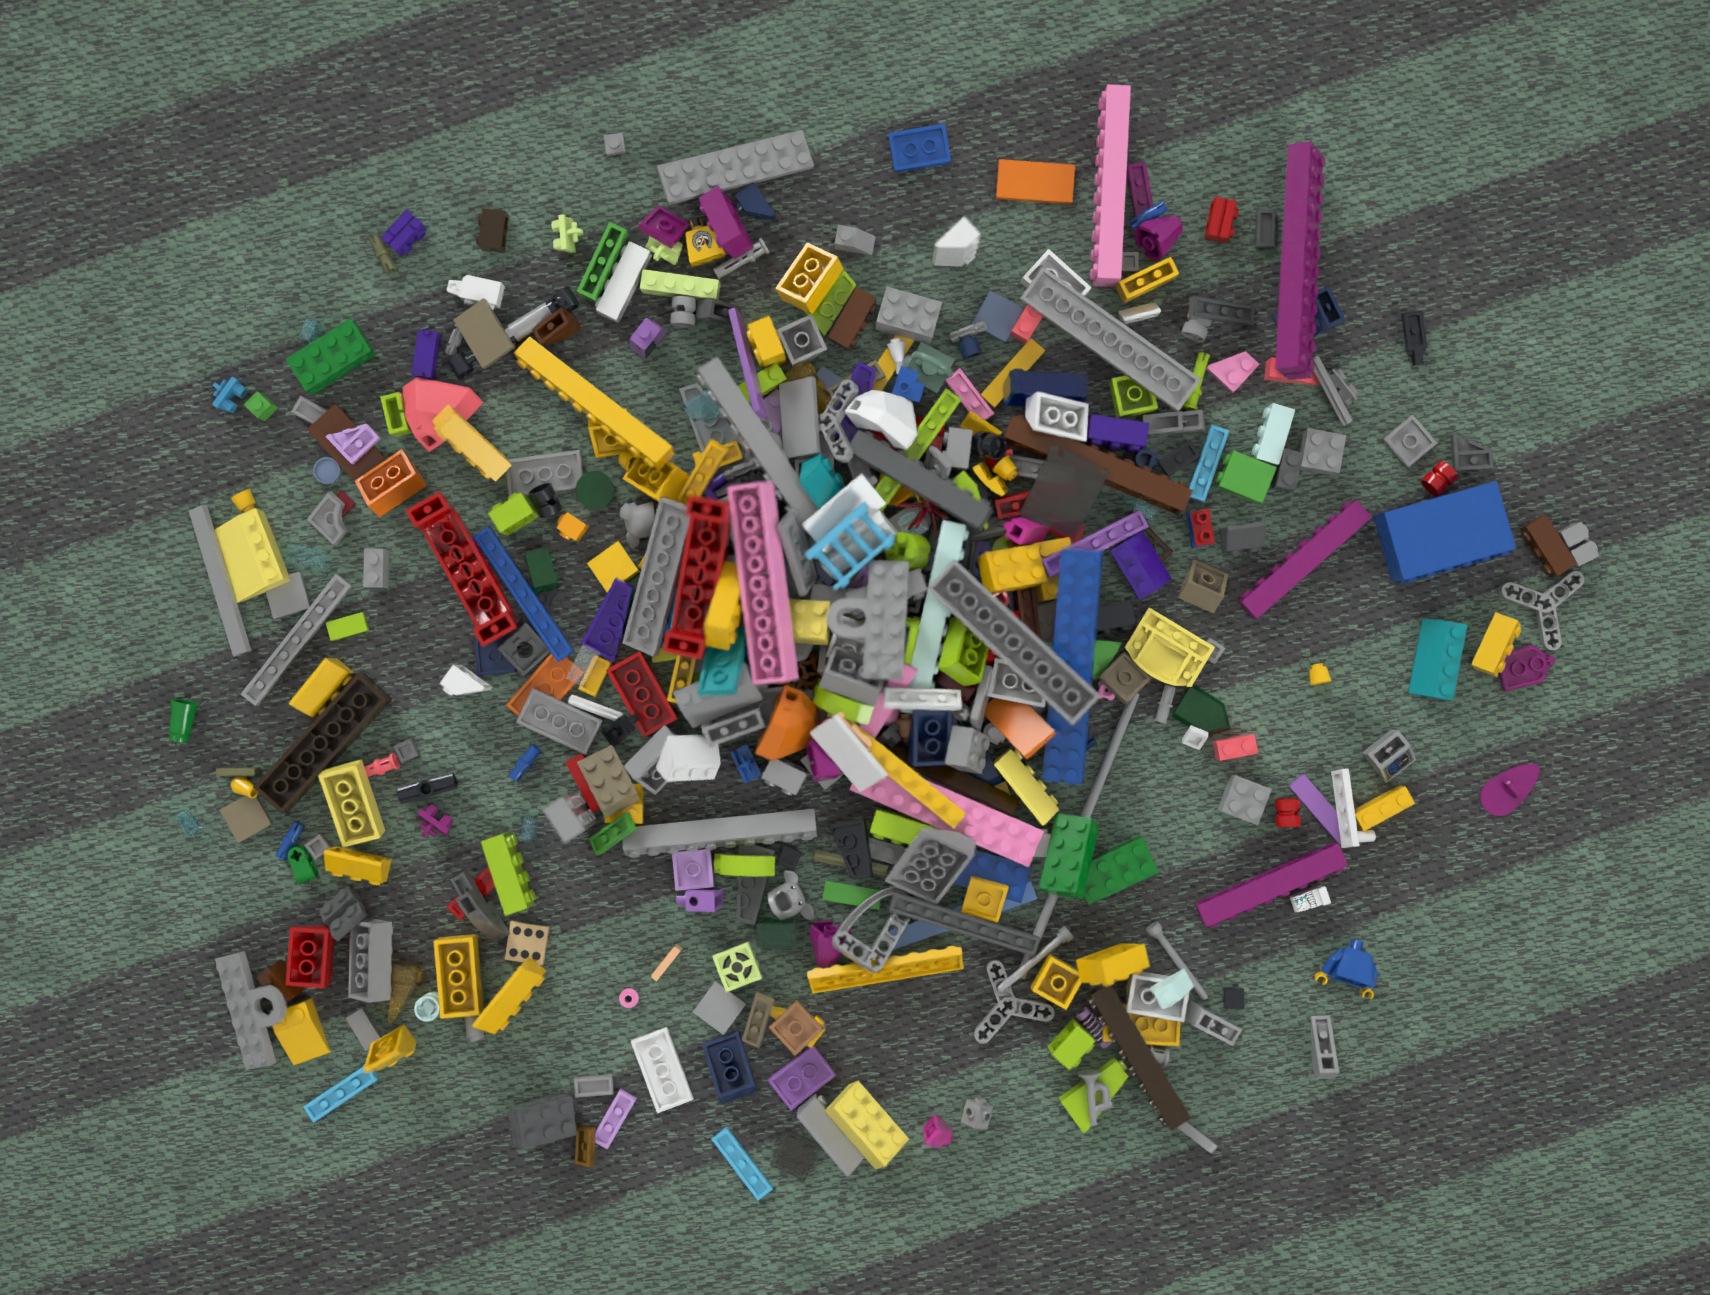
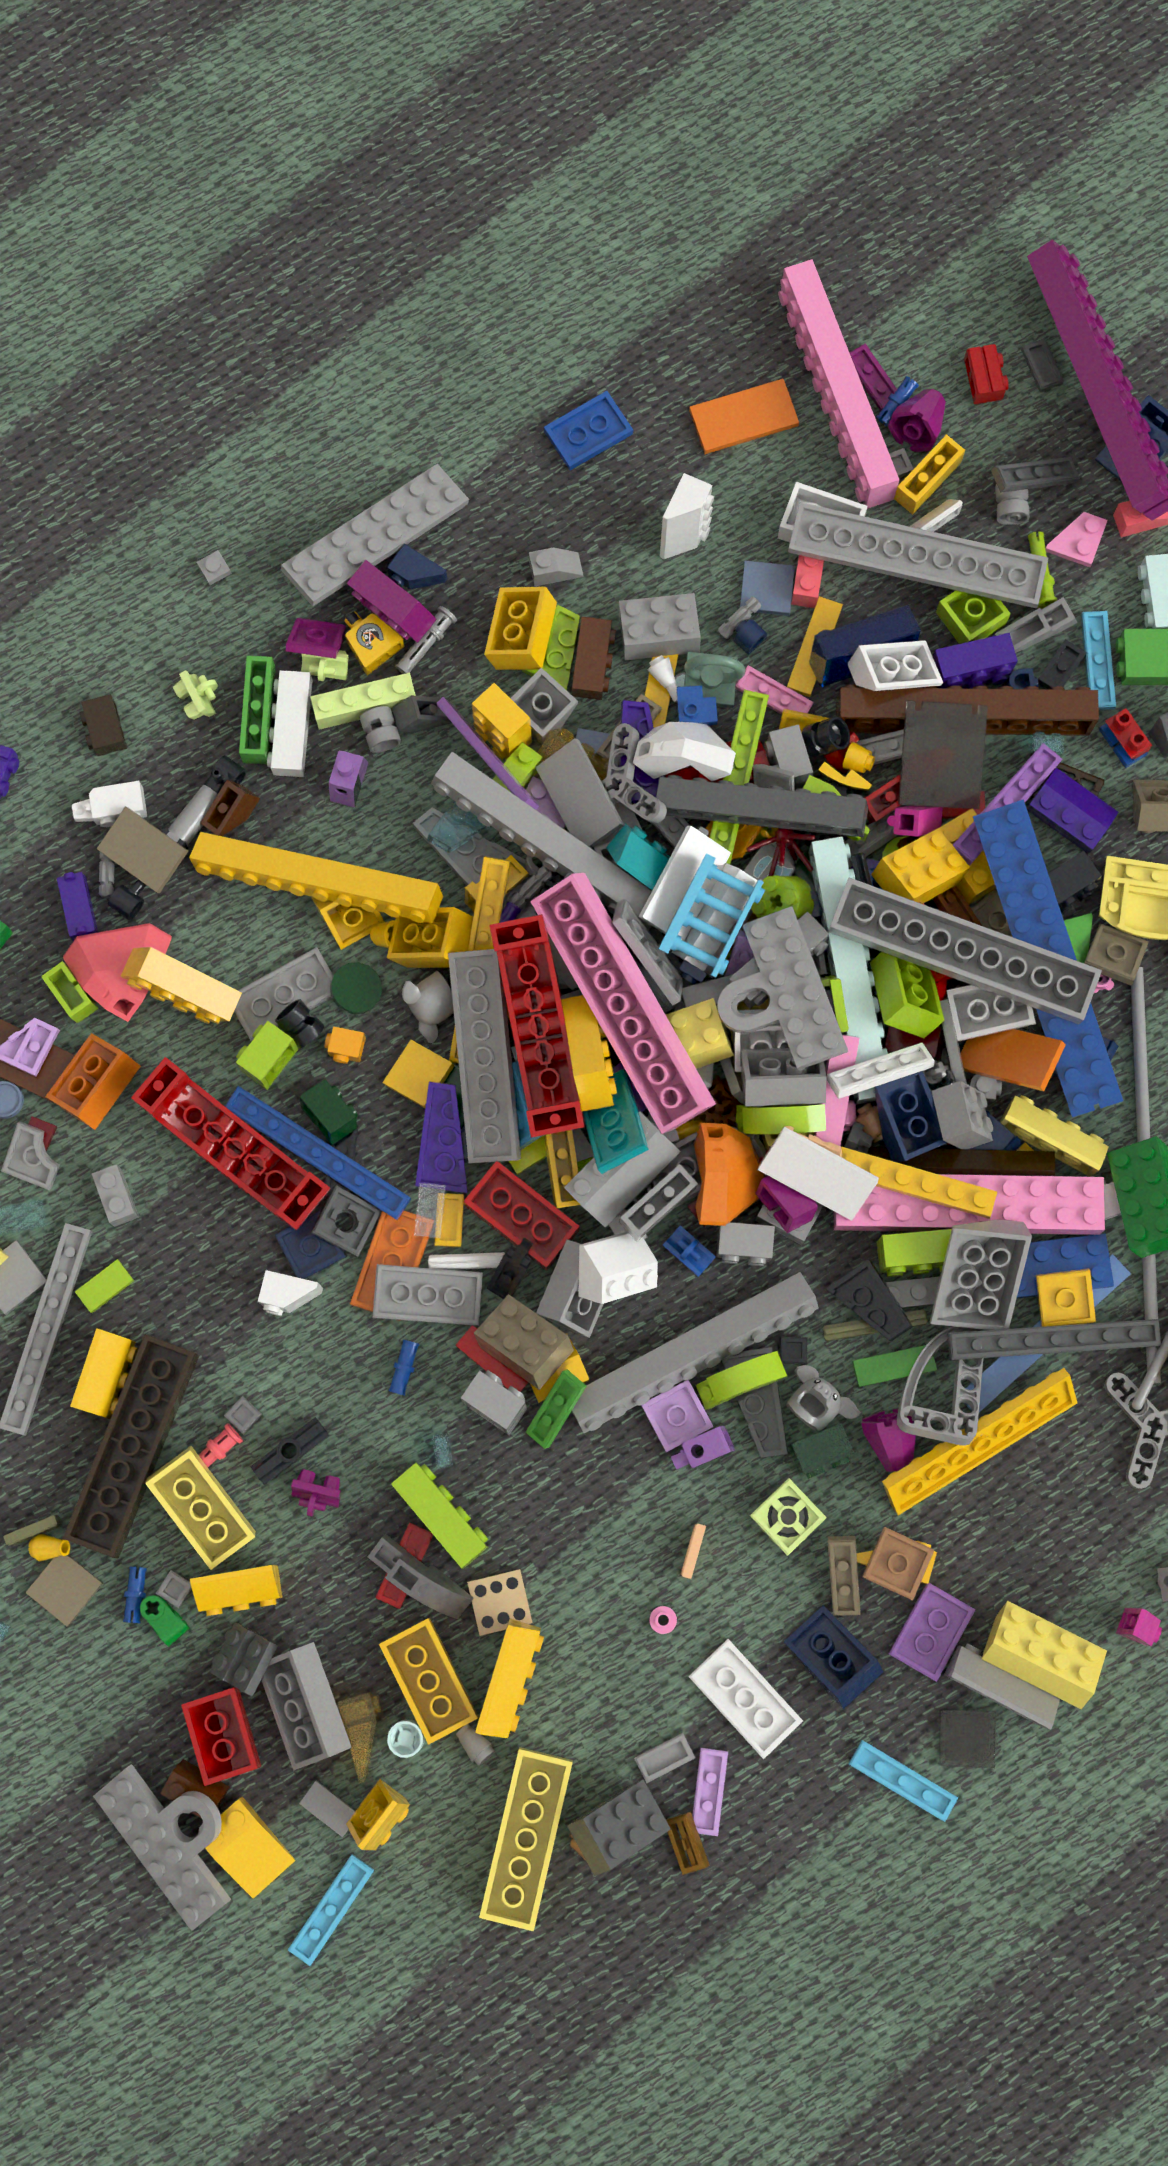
camera: 30 degrees left, 10 degrees down
(481, 1101) = (526, 1839): none -> light yellow brick
(719, 1007) = (786, 1583): light grey tile -> none

